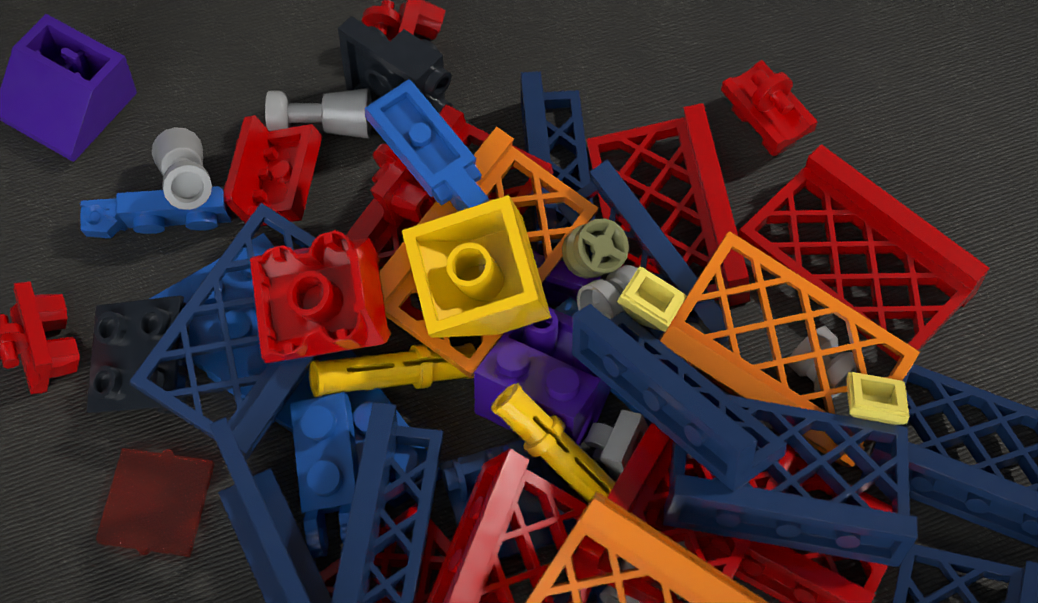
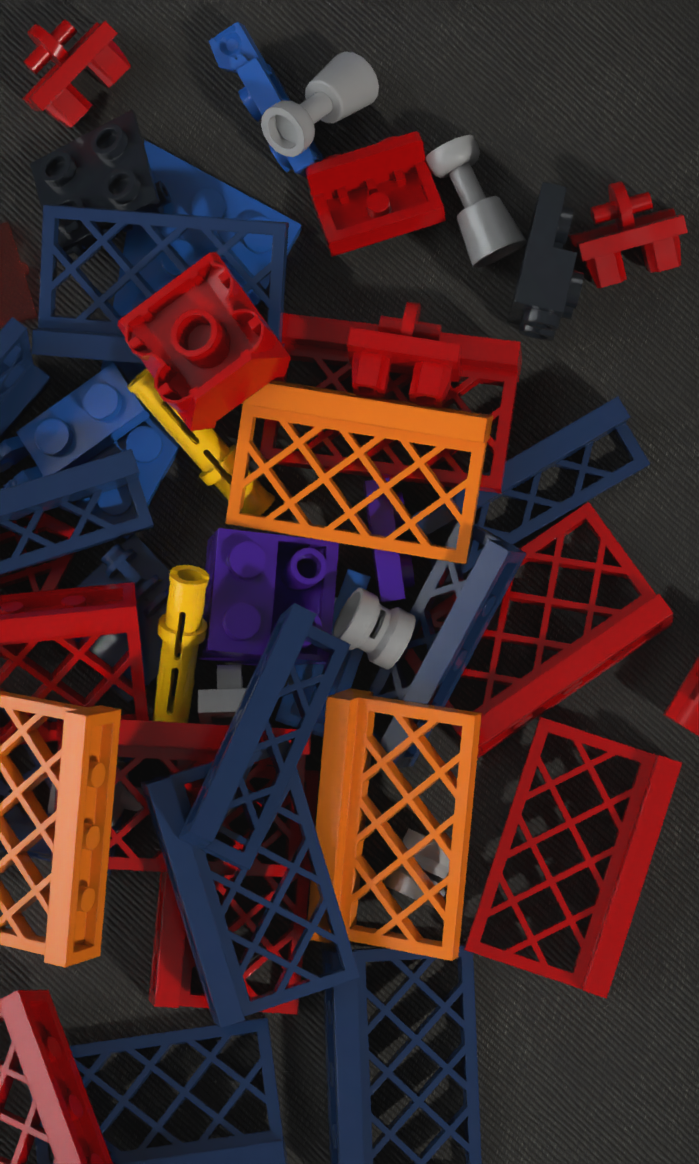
camera: 65 degrees right, 25 degrees up
(427, 146) = (411, 365): blue hinge -> none
(476, 271) = (307, 483): yellow slope -> none
(606, 243) = (400, 594): olive wheel -> none
(651, 300) = (368, 669): light yellow slope -> none
(877, 398) = (376, 936): light yellow slope -> none

